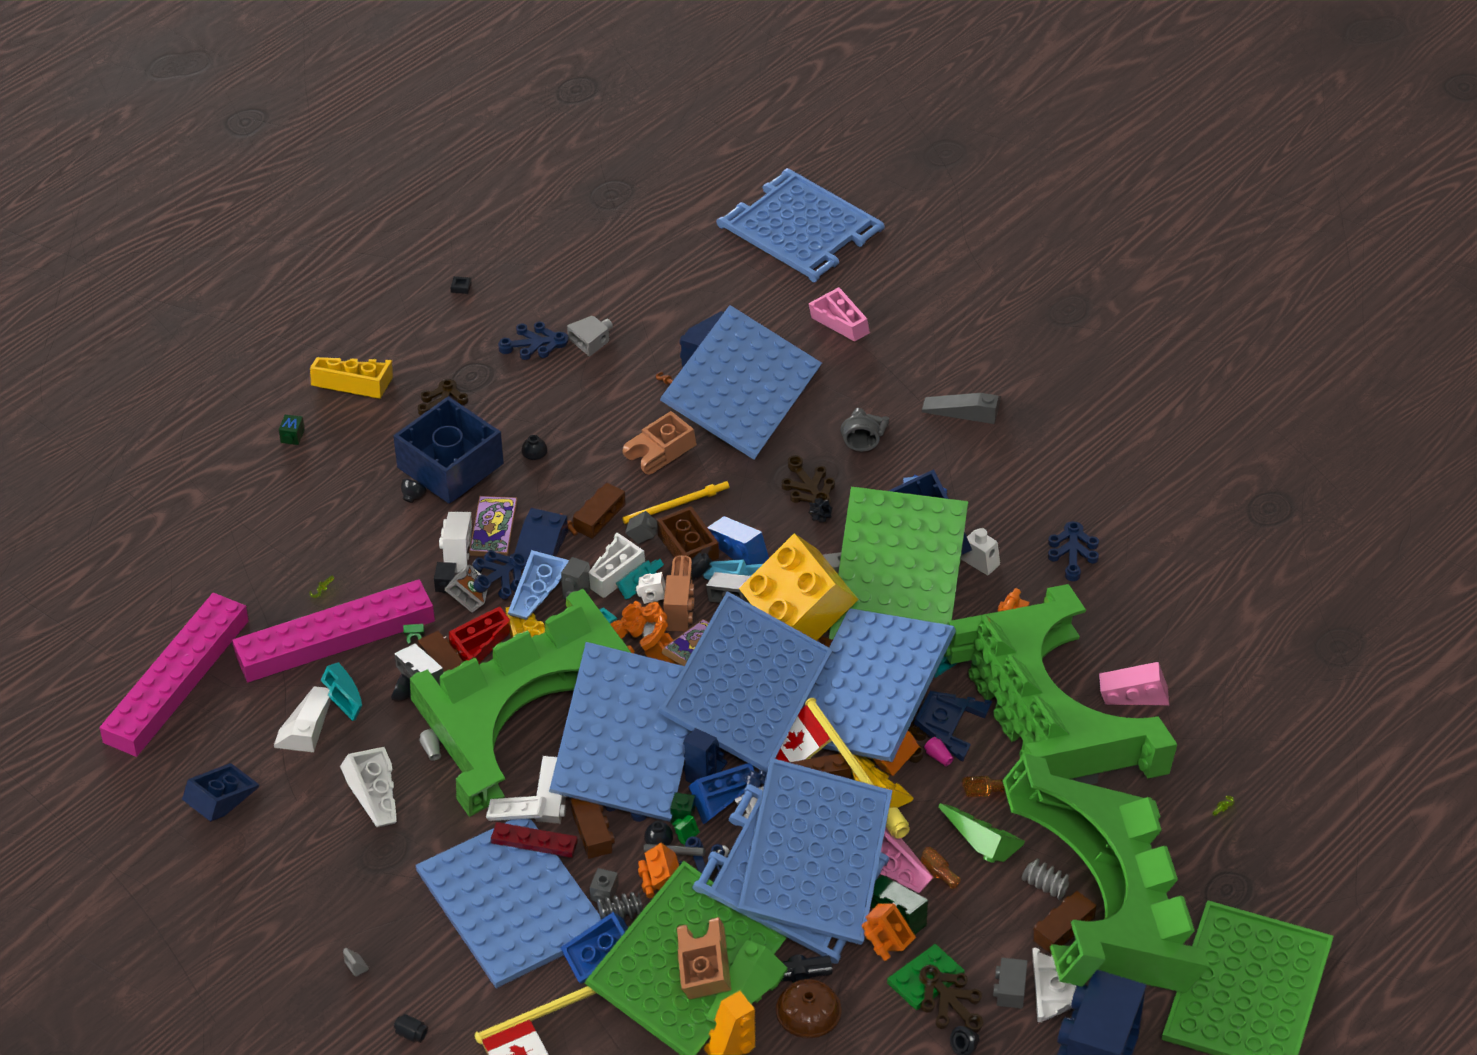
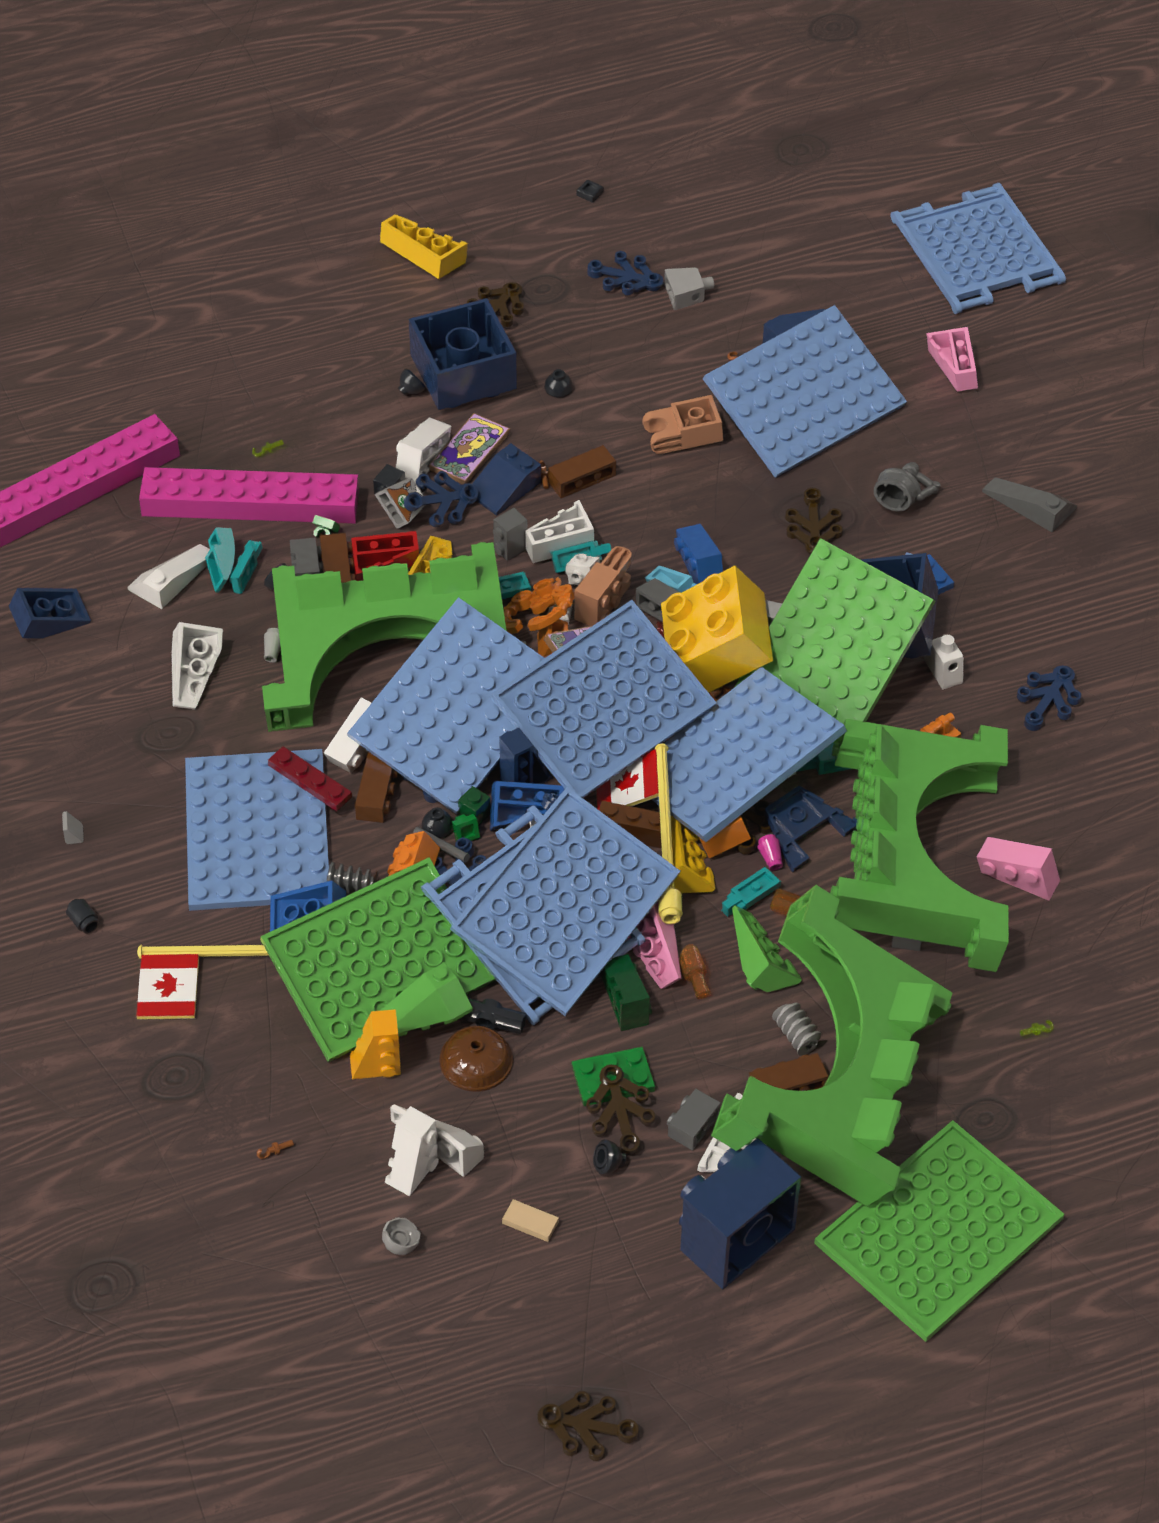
camera: 25 degrees right, 5 degrees up
(291, 429) = (332, 279): dark green brick -> none
(366, 687) = (245, 567): none -> teal hinge
(516, 808) = (311, 740): white tile -> none
(537, 581) = (467, 522): light blue wedge -> none
(604, 885) = (350, 851): dark grey brick -> none
(641, 527) = (612, 505): dark grey brick -> none
(687, 535) = (650, 533): reddish brown brick -> none
(700, 565) = (643, 565): black brick -> none
(703, 961) = (386, 964): nougat brick -> none
(709, 491) = (707, 492): yellow bar -> none
(820, 510) = (800, 553): black gear -> none
(887, 930) = (600, 1011): orange brick -> none
(942, 788) = (751, 891): none -> teal hinge

